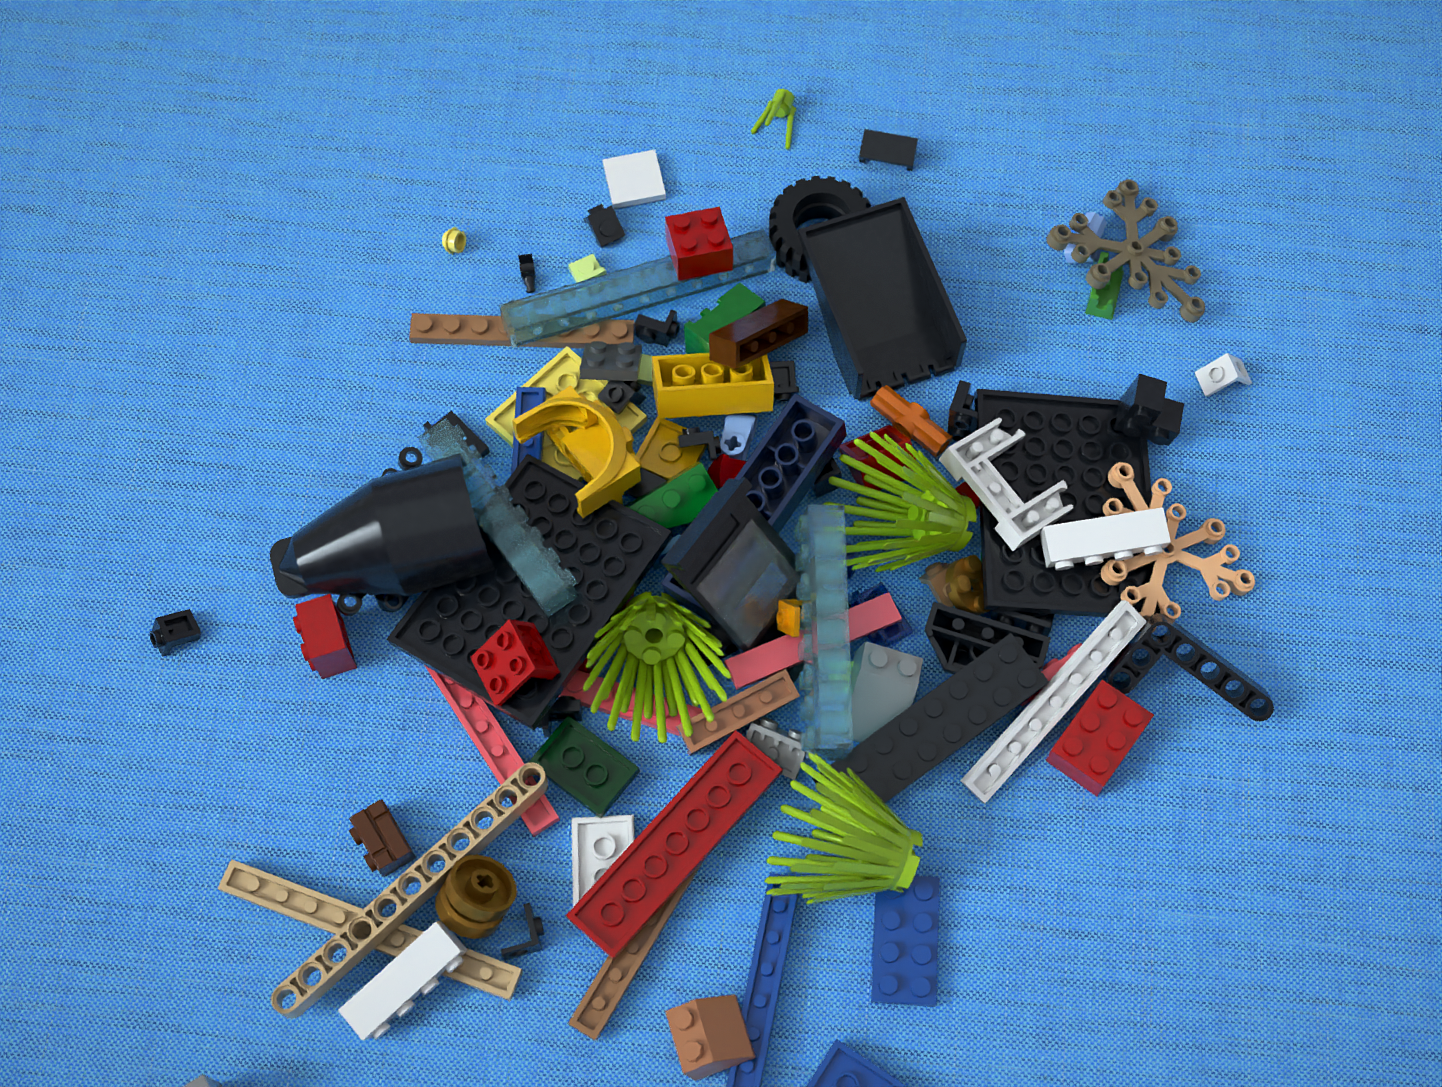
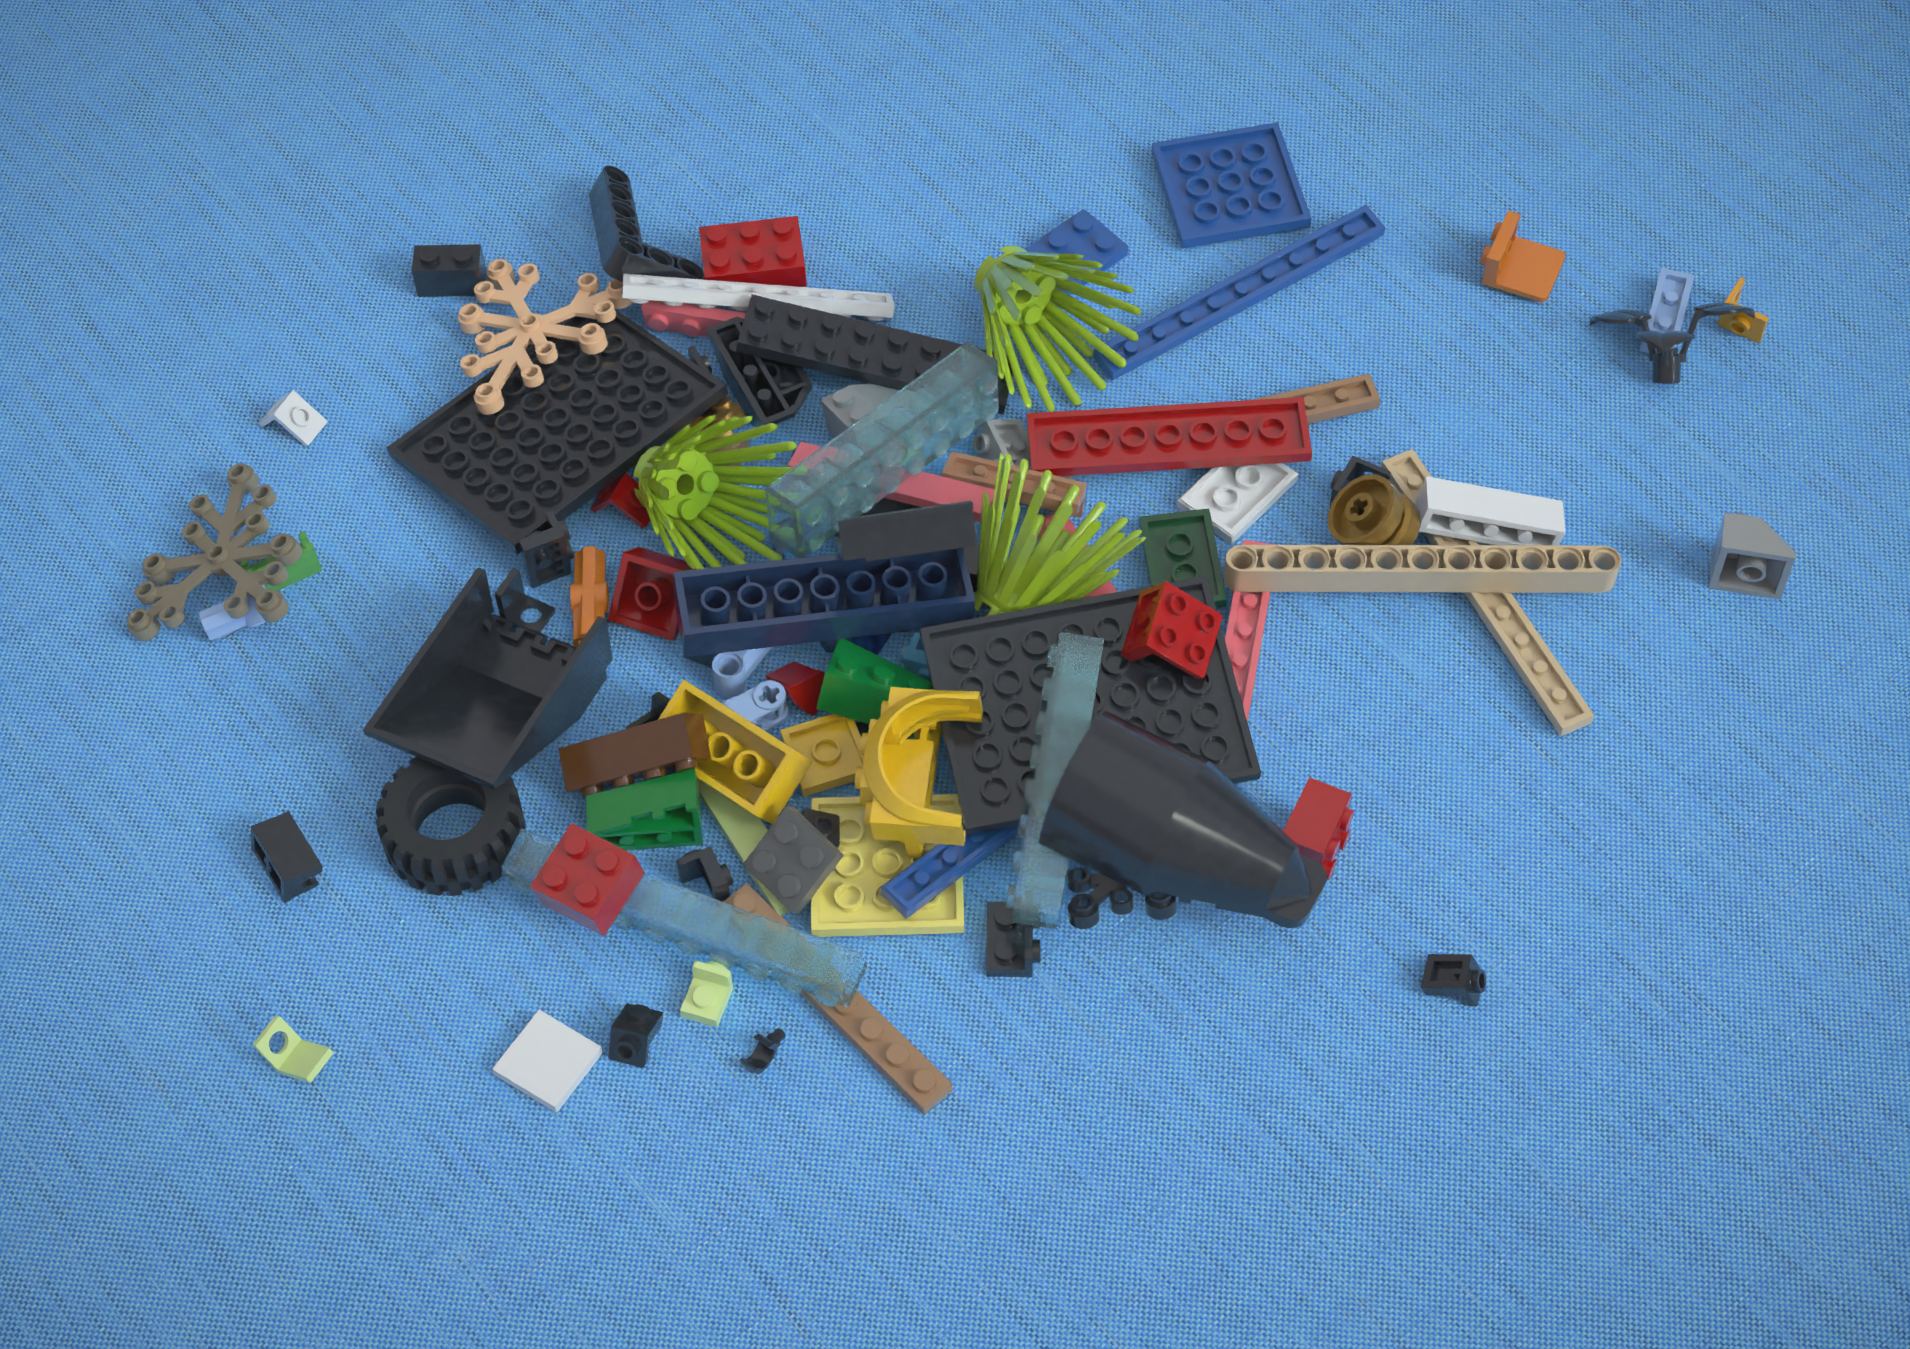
camera: 135 degrees left, 10 degrees down
(381, 838) = (1411, 644): reddish brown brick -> none
(454, 240) = (800, 1153): light yellow plate -> none
(694, 437) = (798, 720): black bracket -> none
(709, 1035) = (1277, 304): nougat slope -> none
(758, 77) = (297, 1057): none -> yellowish green bracket
(779, 106) = (316, 999): lime plant -> none
(789, 616) = (896, 494): light orange bracket -> none
(948, 381) = (513, 602): none -> black bracket
(1017, 521) = (605, 482): white wedge -> none
(1105, 538) = (575, 346): white brick -> none
(1147, 412) = (406, 417): black brick -> none
(1270, 547) = (447, 269): none -> black brick

